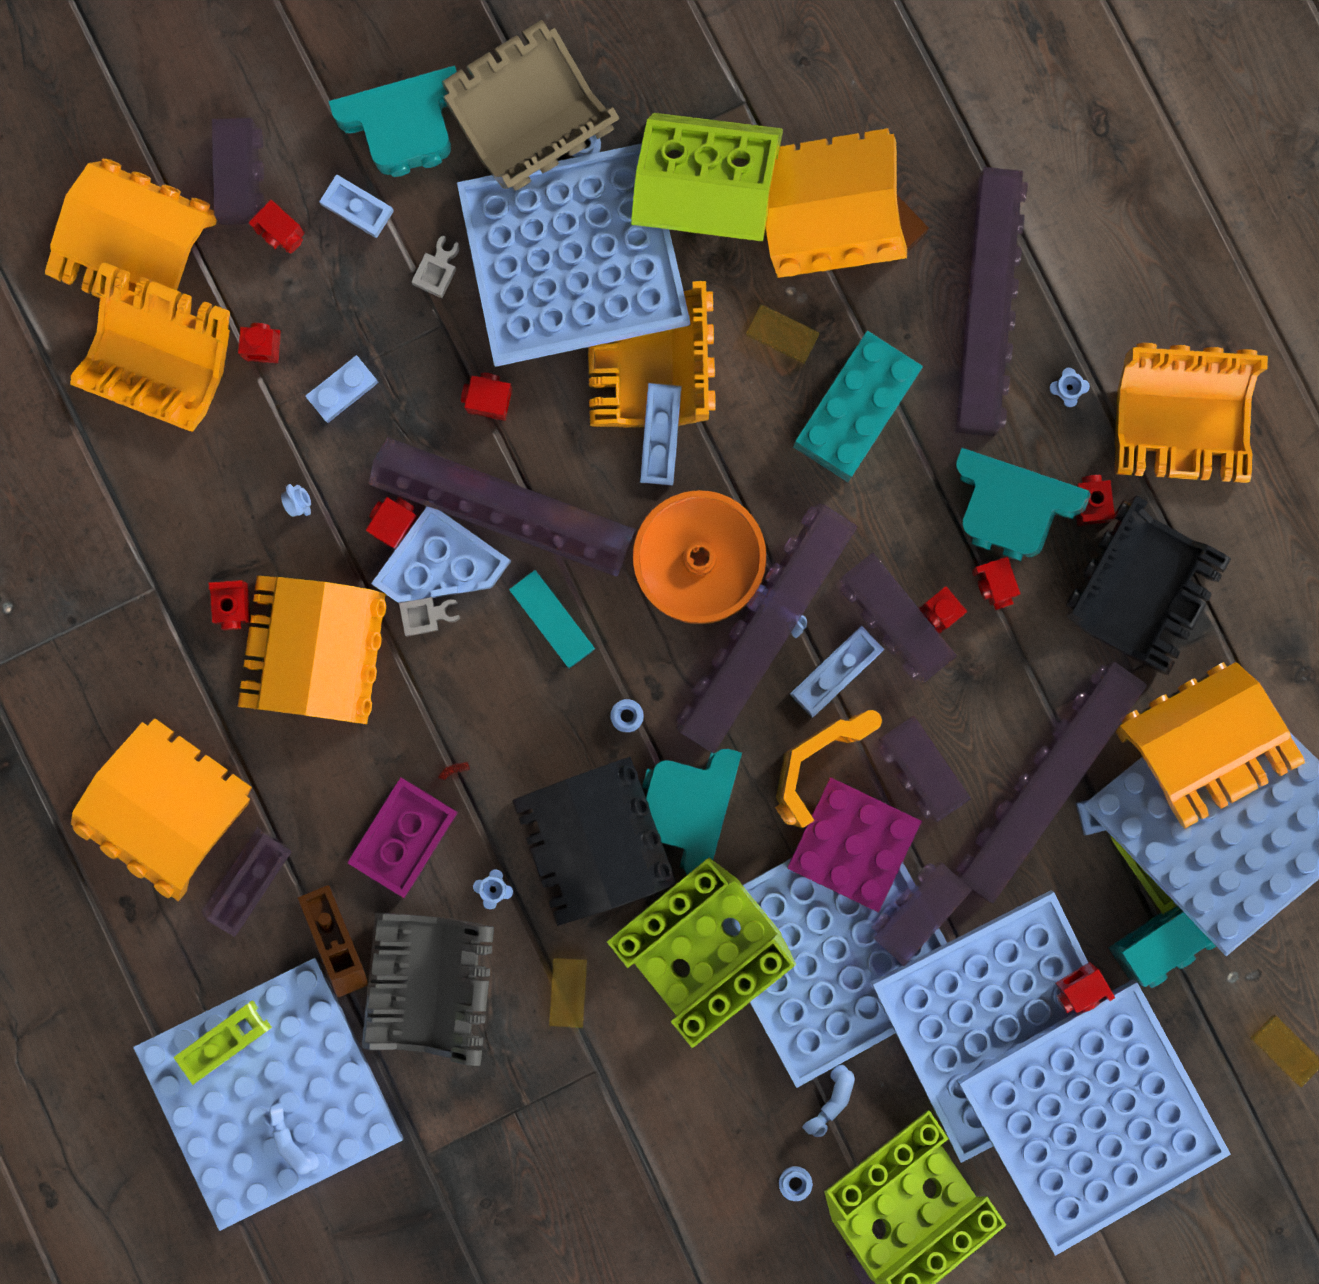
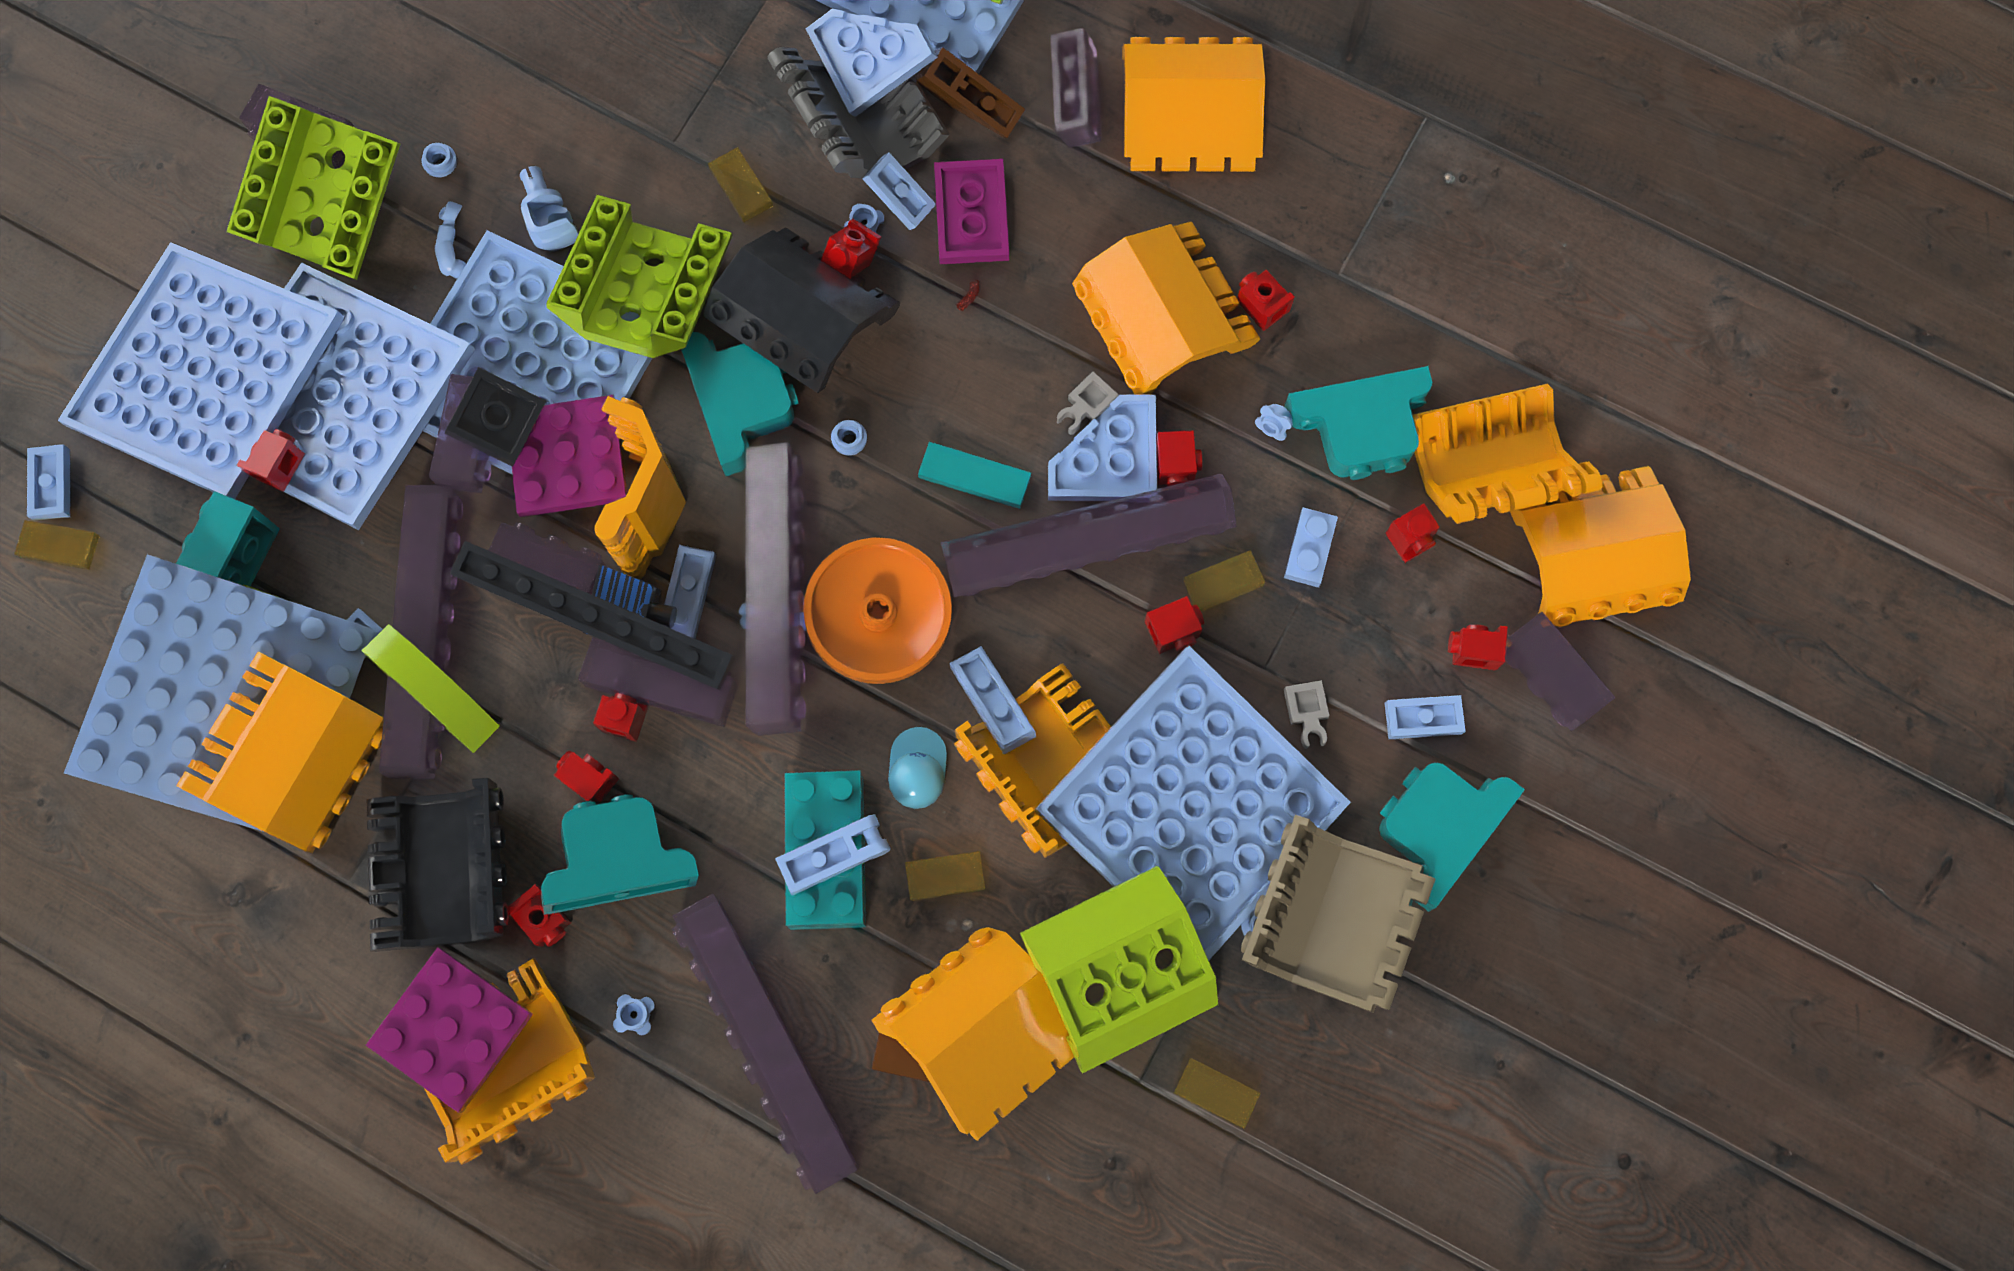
camera: 145 degrees right, 10 degrees down
(228, 452) = (1364, 421): none -> teal brick
(393, 1025) = (868, 55): none -> light blue plate
(425, 407) = (1224, 581): none -> clear yellow tile
(449, 890) = (899, 191): none -> light blue plate
(520, 867) = (851, 248): none -> red brick
(698, 55) = (1217, 1093): none -> clear yellow tile
(741, 1074) = (543, 214): none -> light blue piece
(748, 426) = (917, 767): none -> medium azure cap
(858, 386) = (831, 855): none -> light blue plate
(885, 689) = (633, 596): none -> torso
(892, 900) = (495, 416): none -> black plate
(917, 693) = (593, 615): none -> black plate
(1071, 726) = (431, 687): none -> lime slope
(1208, 457) = (449, 1030): none -> magenta plate
(1266, 1106) = (48, 482): none -> light blue plate

